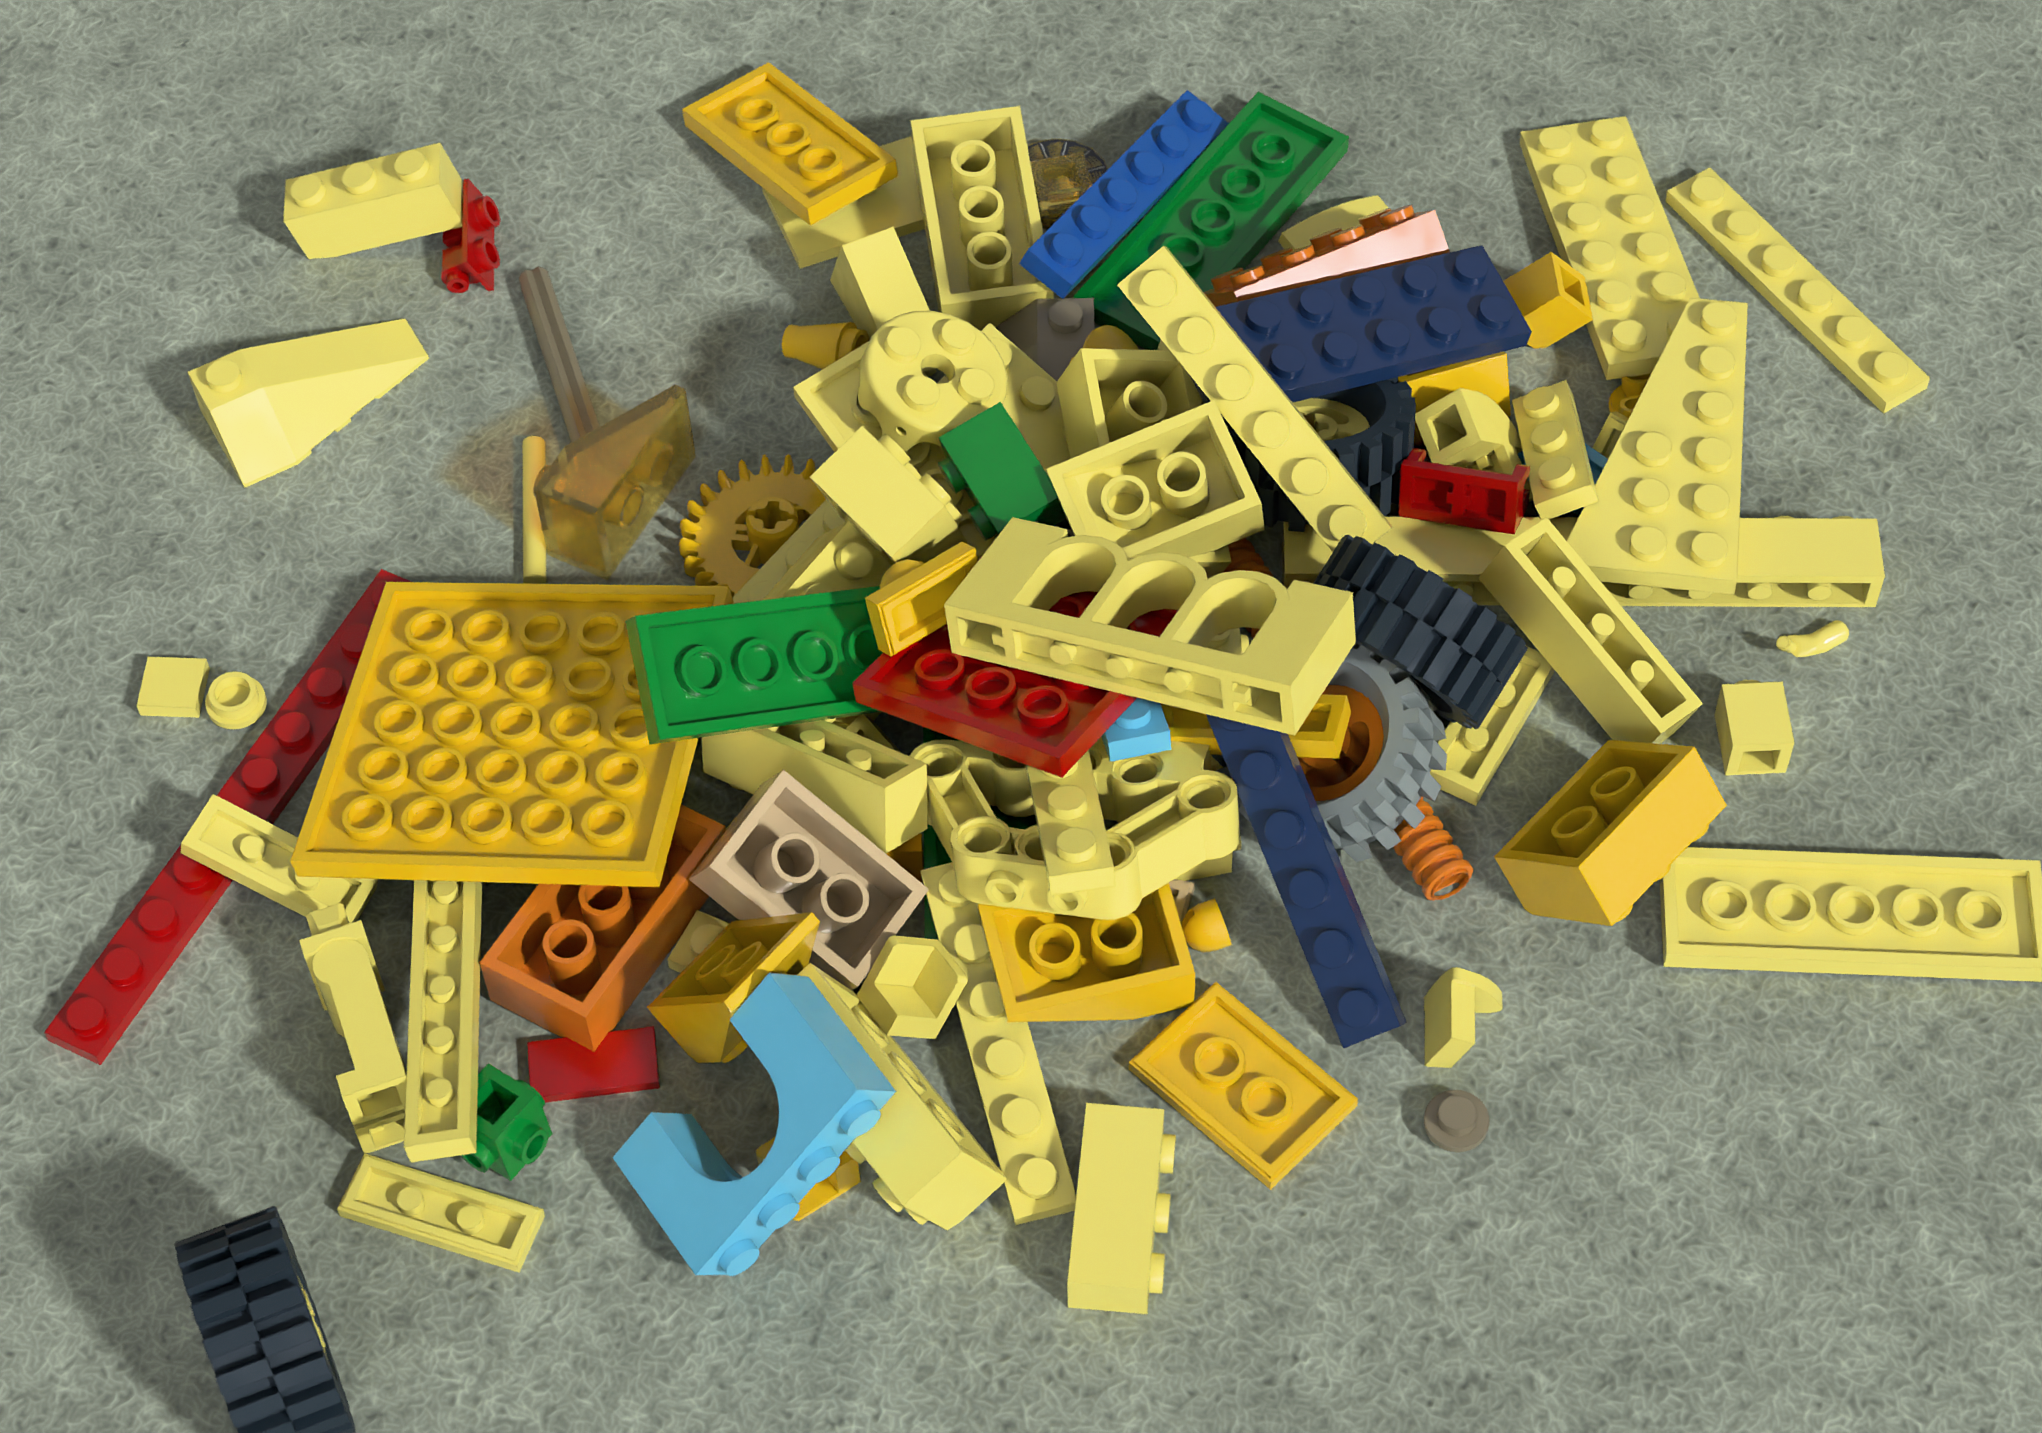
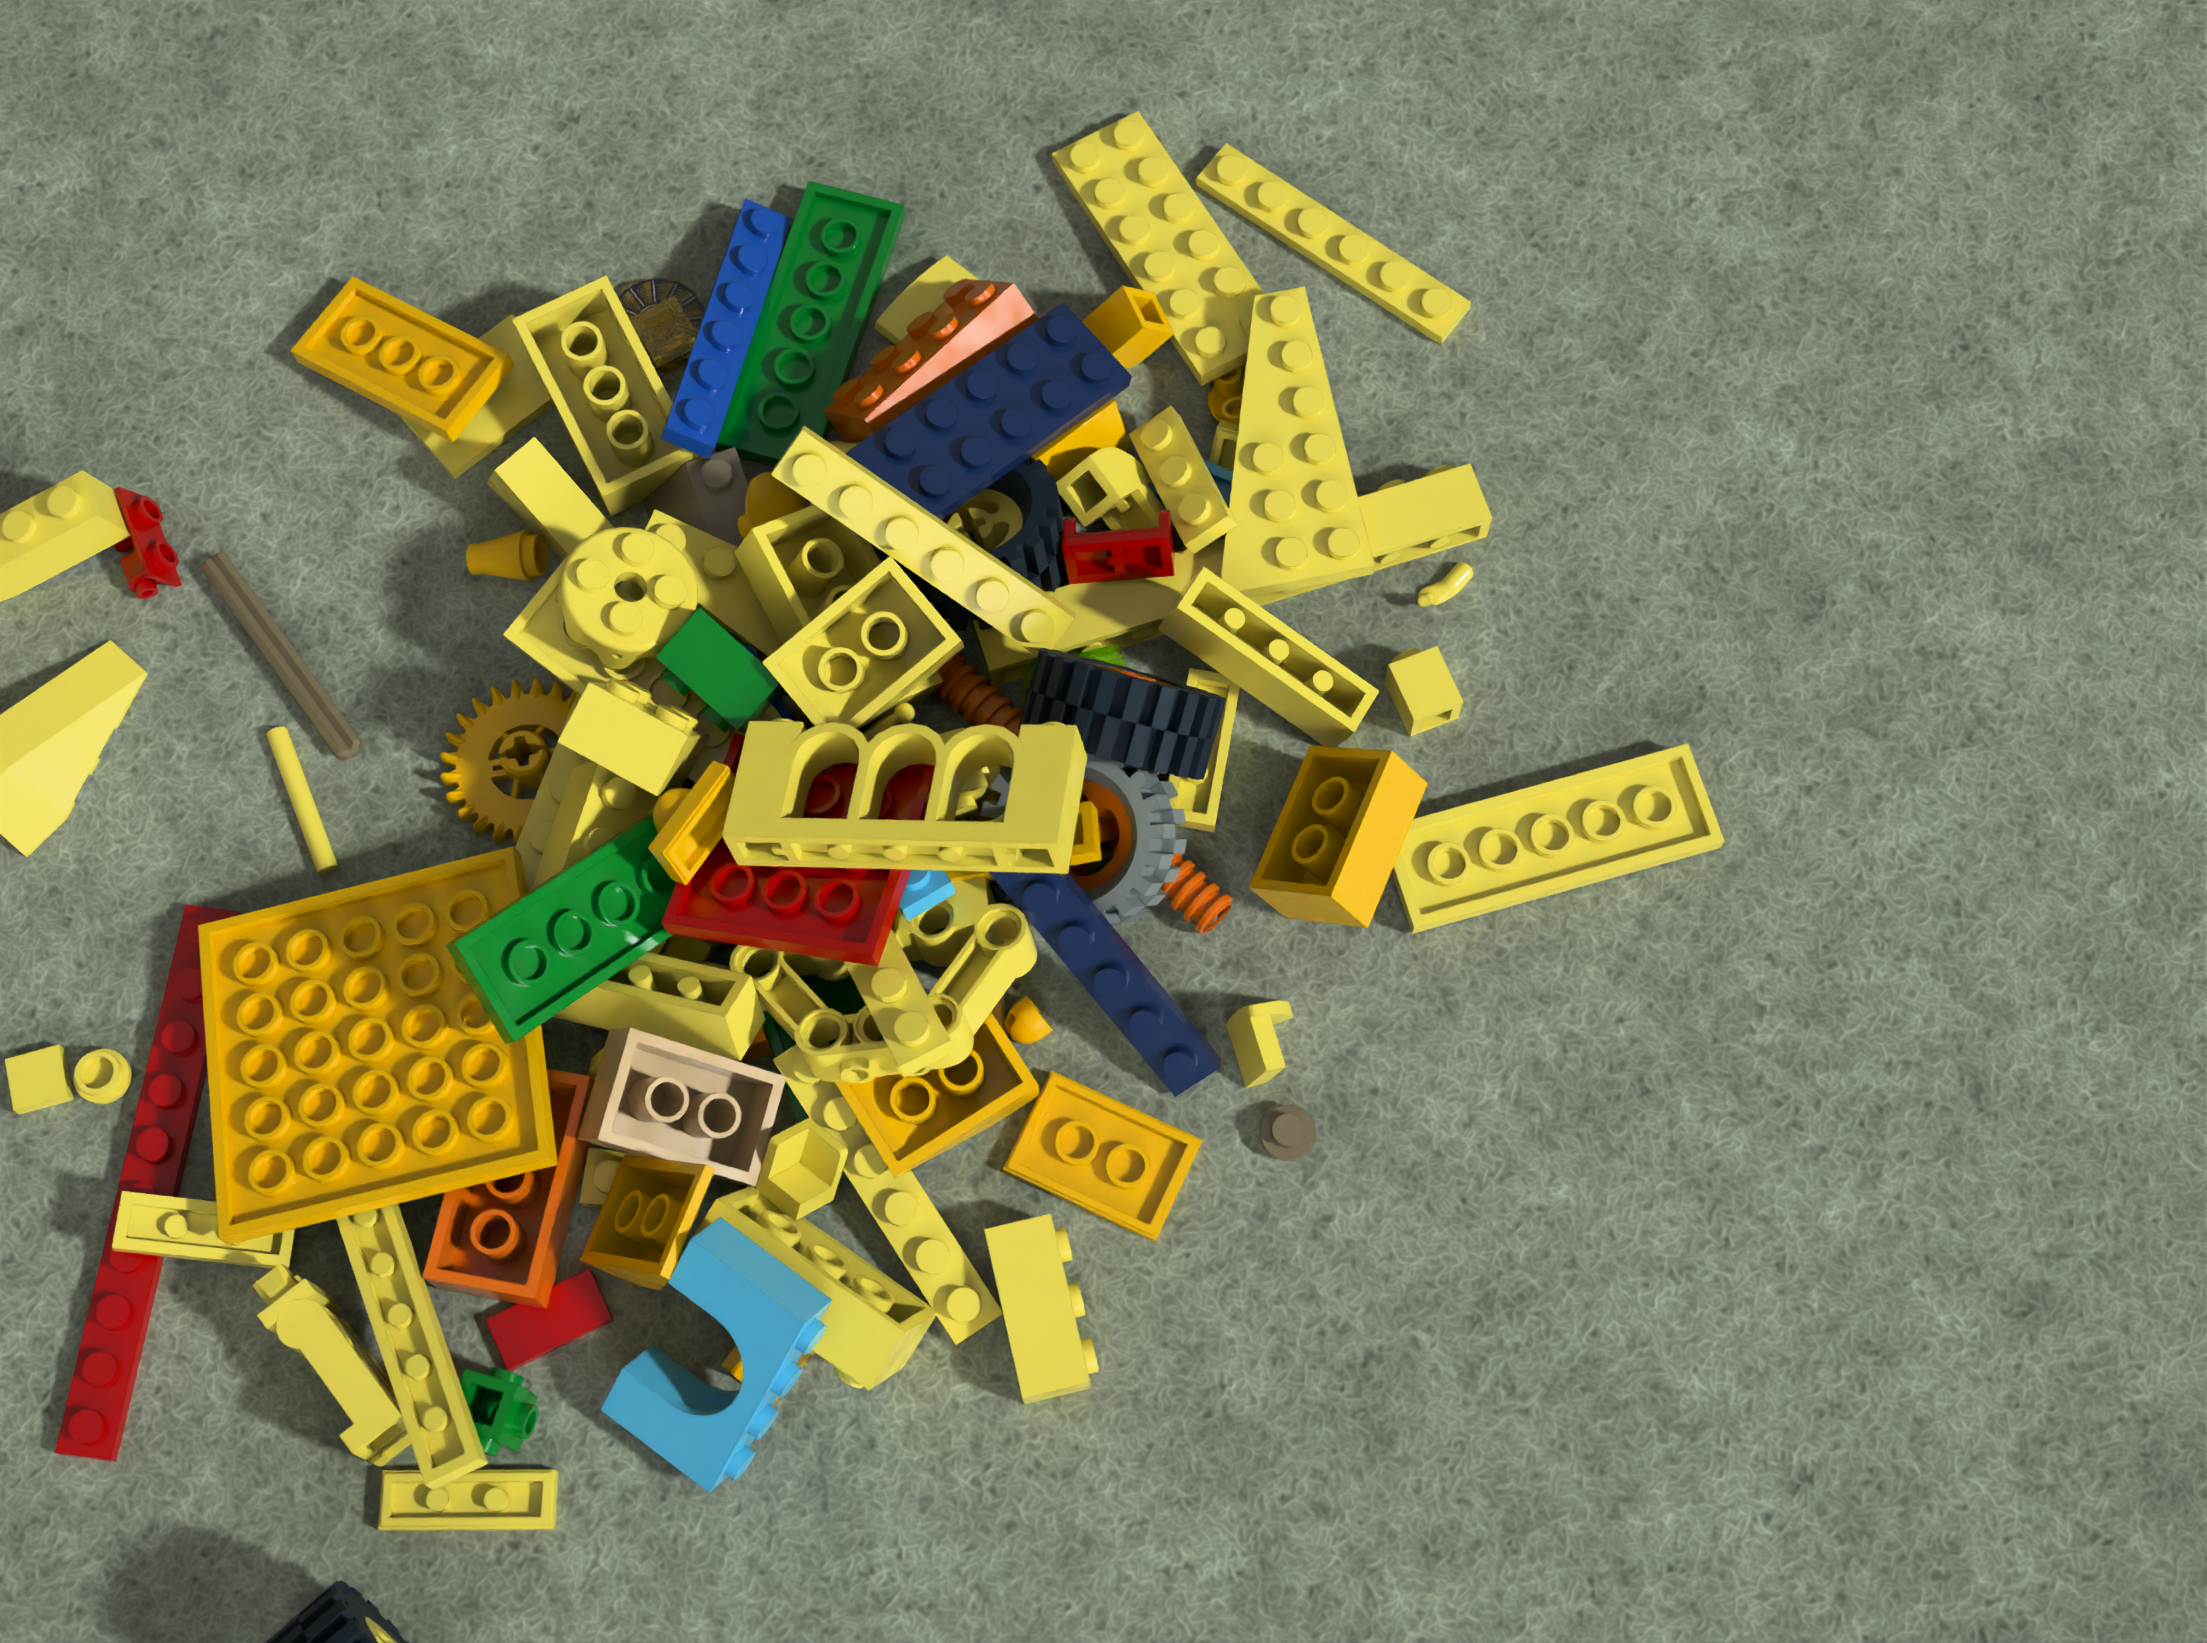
camera: 20 degrees left, 15 degrees up
(614, 482) = (368, 763): clear yellow slope -> none

